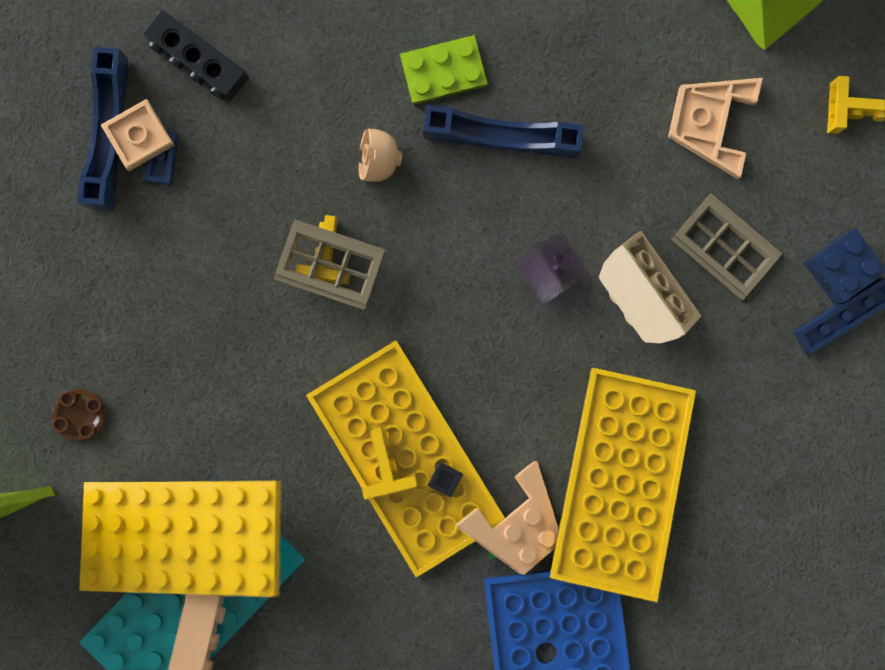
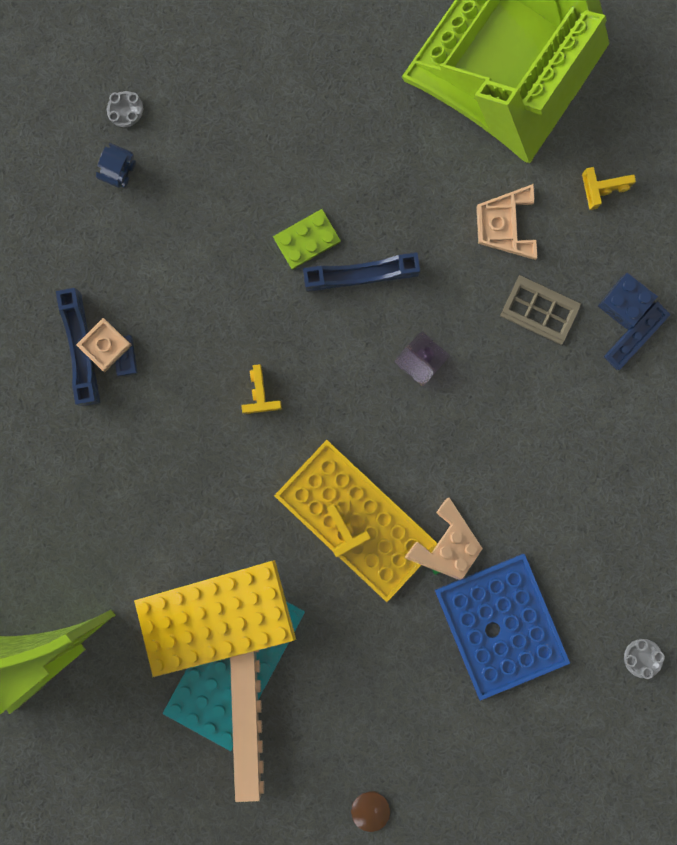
camera: 10 degrees left, 0 degrees up
(78, 415) = (116, 554): reddish brown dish -> none
(166, 29) = (103, 263): black brick -> none
(321, 287) = (265, 381): dark tan piece -> none
(379, 155) = (278, 313): light nougat cylinder -> none
(445, 479) = (388, 527): black tile -> none
(623, 485) = (514, 496): yellow plate -> none
(647, 292) = (494, 357): tan windscreen -> none

